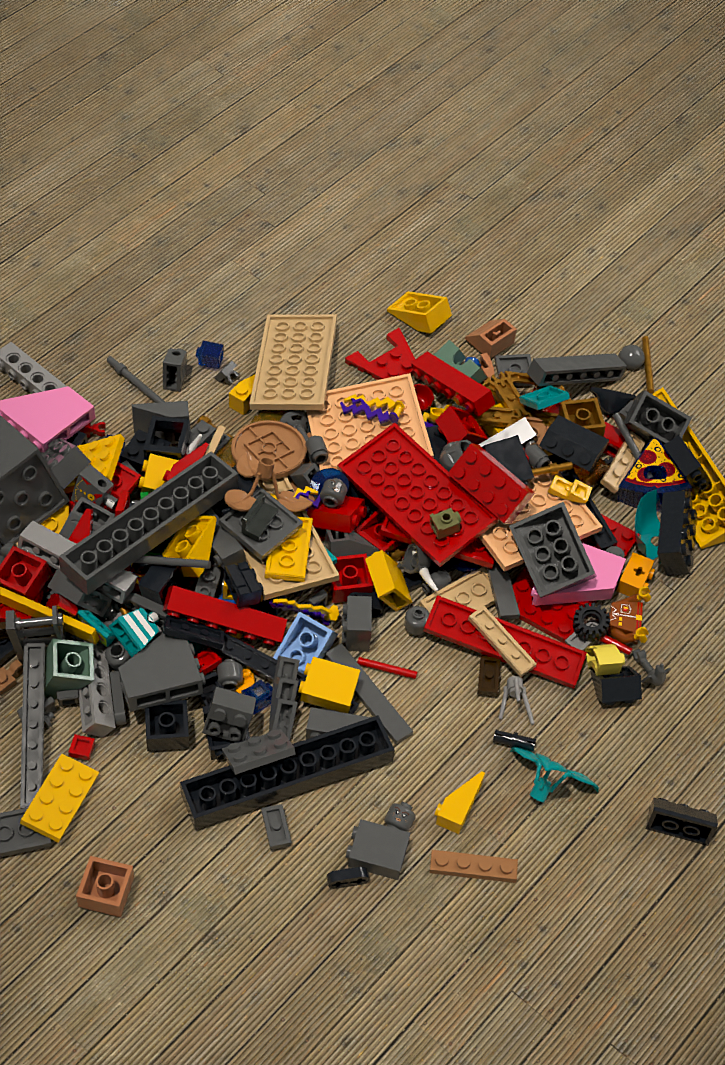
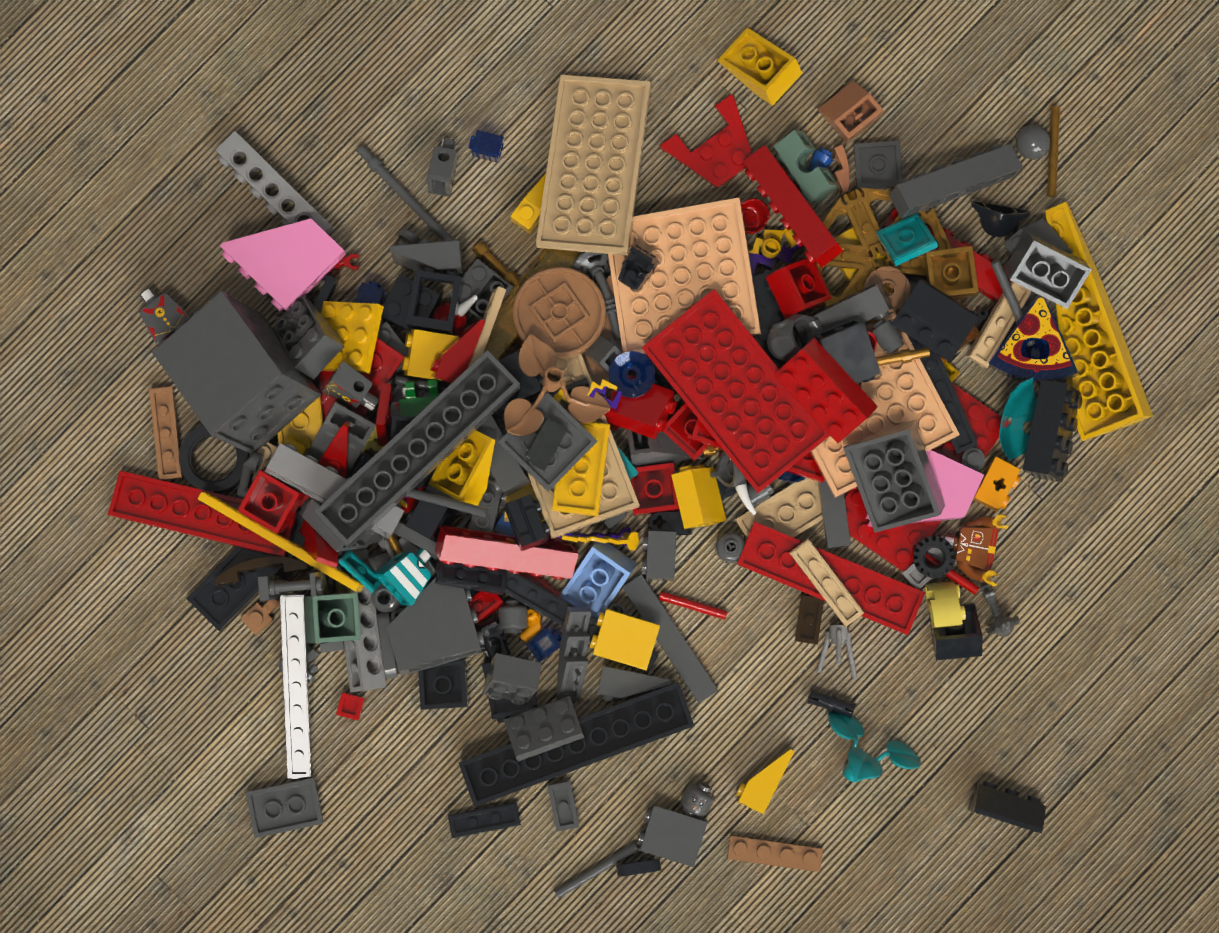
camera: 10 degrees right, 30 degrees up
(59, 798) = (330, 770): yellow plate -> none
(105, 886) = (382, 877): nougat brick -> none
(202, 842) = (484, 820): none -> black tile
(226, 372) = (507, 171): dark grey tile -> none
(306, 884) = (596, 870): none -> dark grey bar
(317, 449) = (618, 317): dark grey brick -> none
(332, 417) = (637, 268): none -> black hand
(333, 492) = (635, 392): dark grey head -> none
(365, 407) = (700, 272): piece -> none
(445, 523) = (758, 448): olive brick -> none
(569, 491) = (924, 382): yellow slope -> none
(687, 464) = (1078, 336): black window -> none

